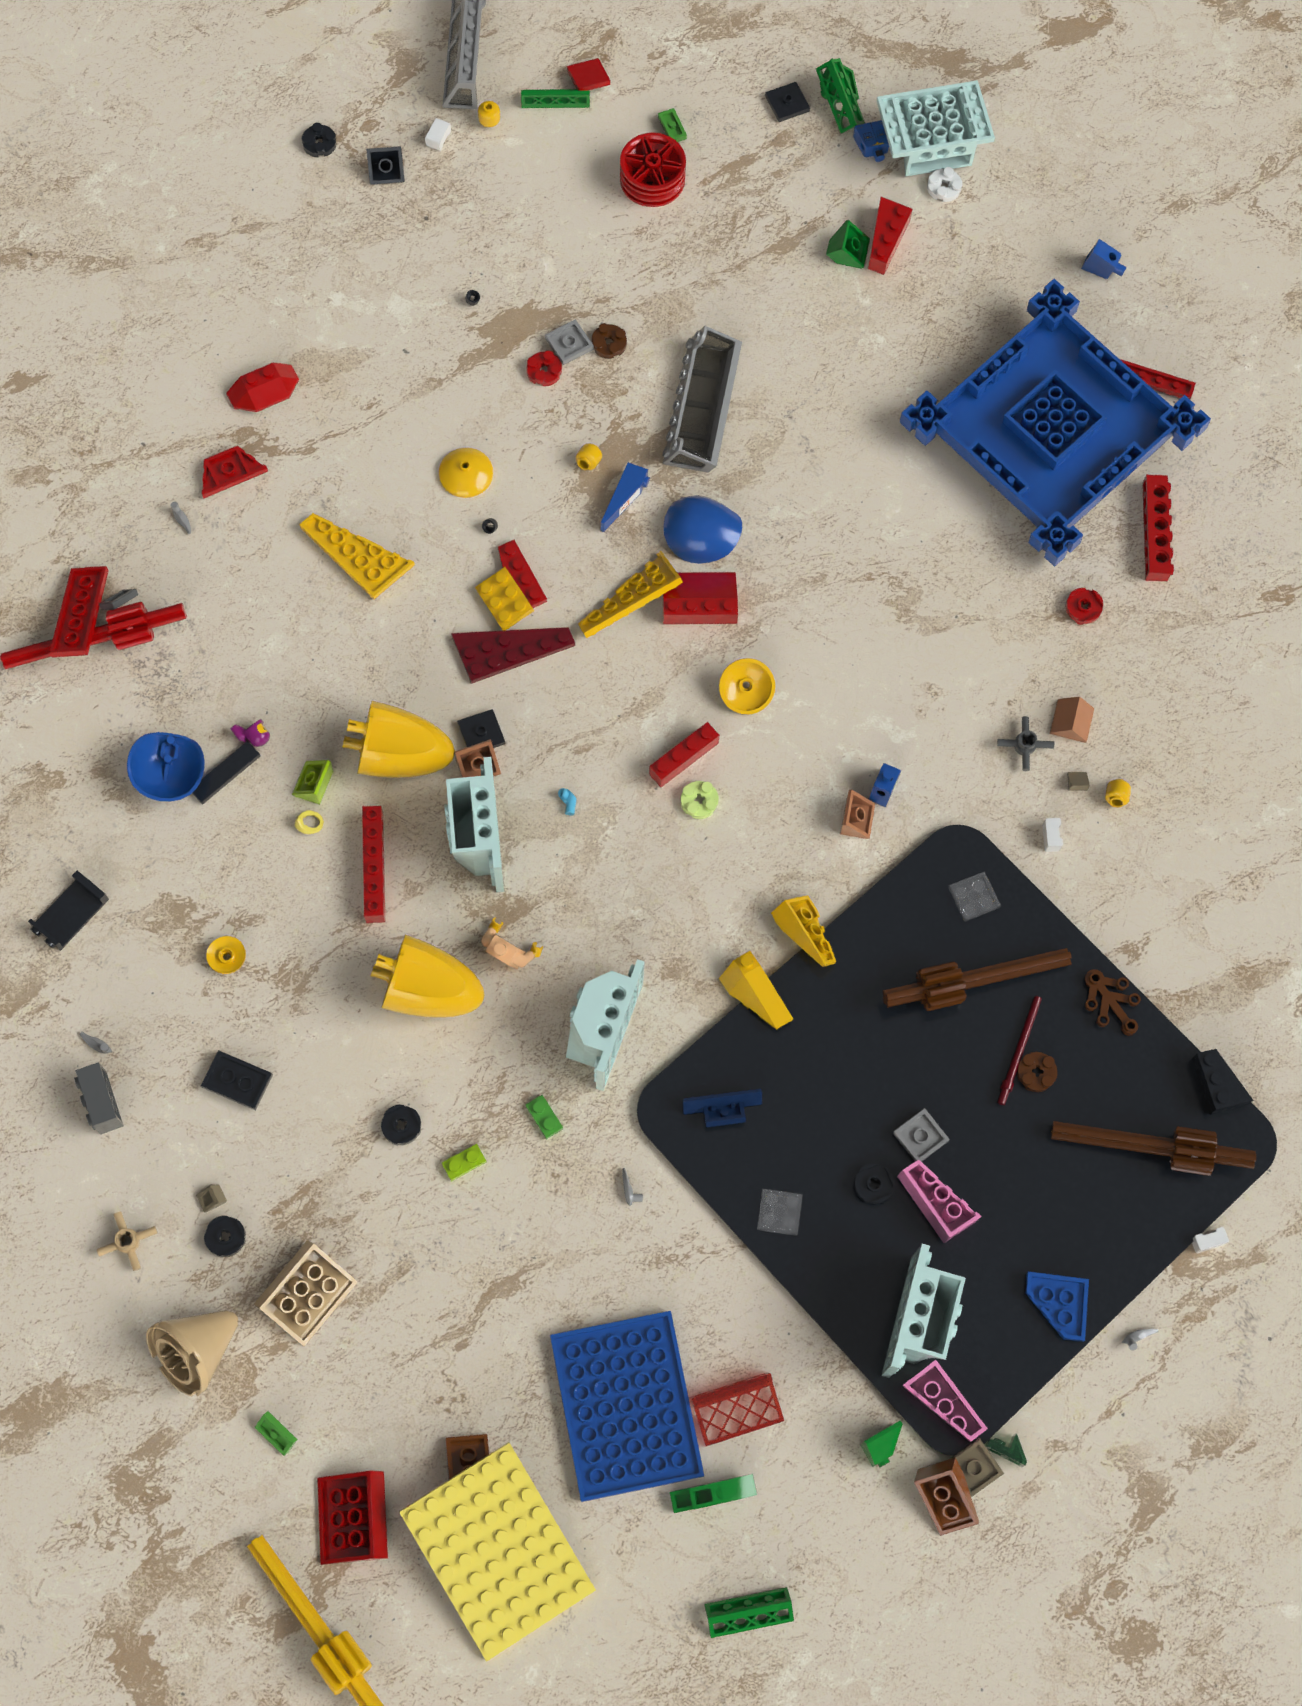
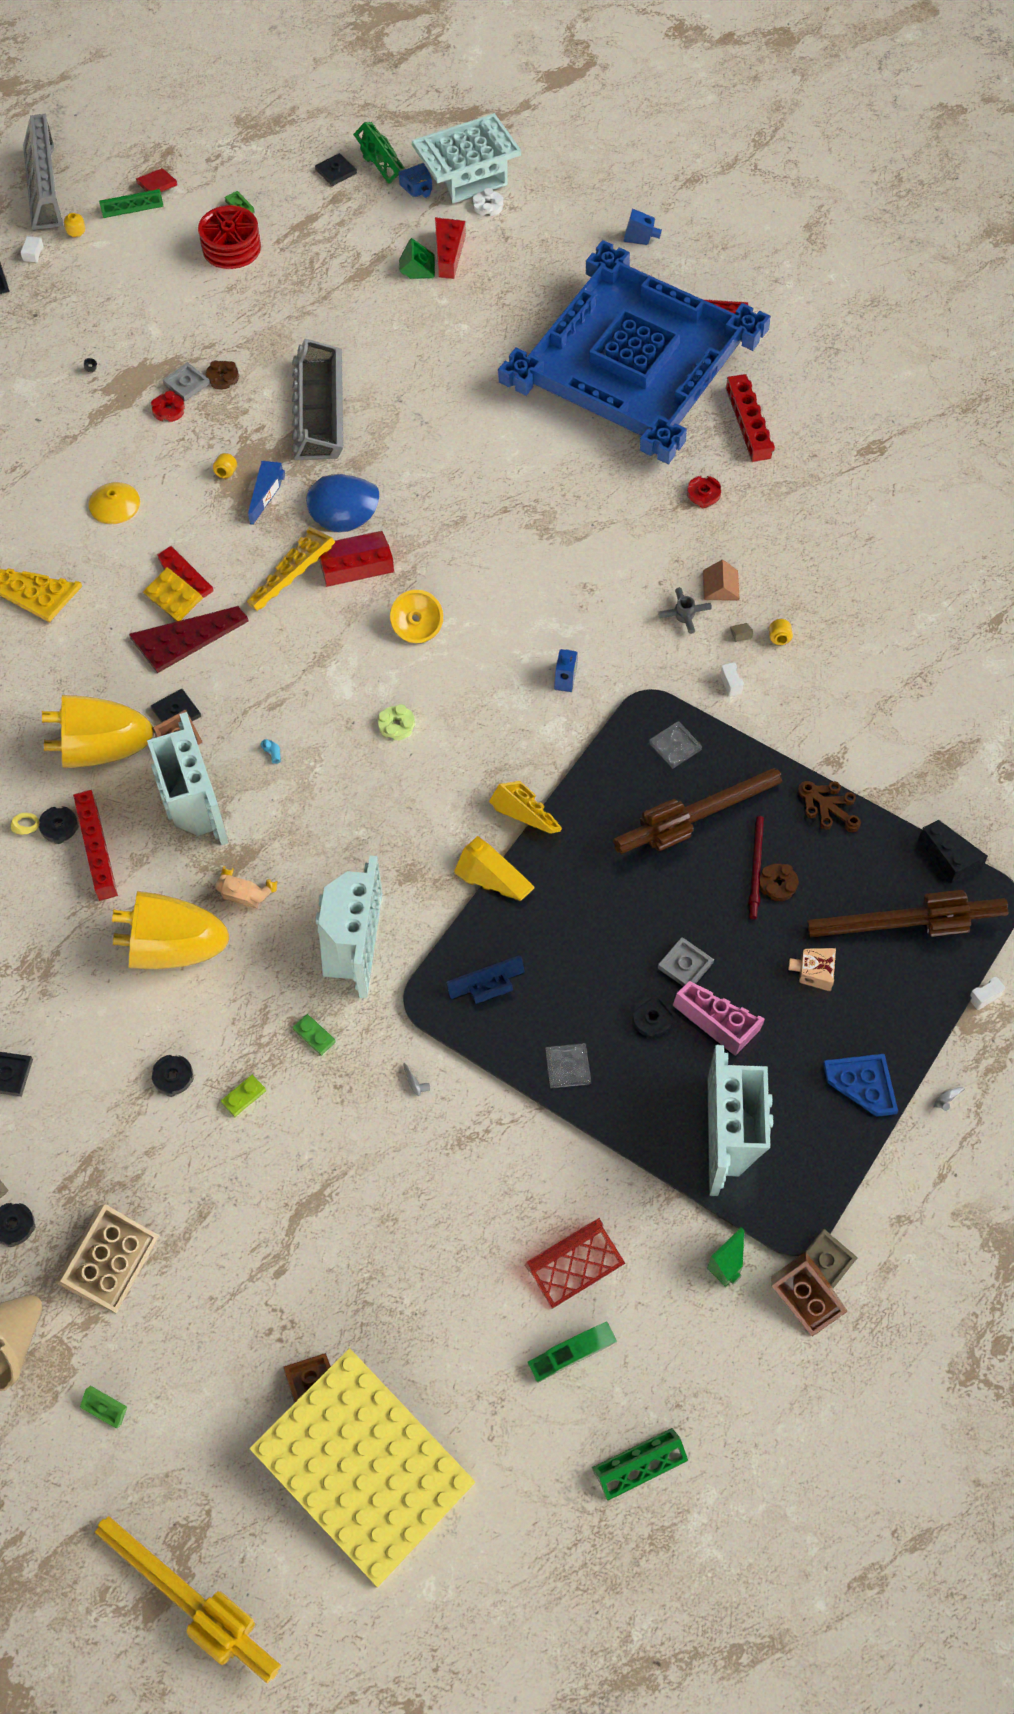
camera: 10 degrees left, 10 degrees down
(313, 780) = (22, 786): lime slope -> none
(341, 842) = (63, 832): none -> black plate
(352, 1517) = (202, 1473): red slope -> none
(490, 528) = (147, 542): black hinge -> none
(626, 1406) = (462, 1289): blue plate -> none
(684, 754) = (372, 686): red brick -> none
(857, 816) = (547, 703): nougat slope -> none
(941, 1395) = (778, 1199): bright pink wedge -> none
(1012, 1453) = (859, 1237): clear green slope -> none
(1047, 1173) = (815, 967): none -> light nougat torso

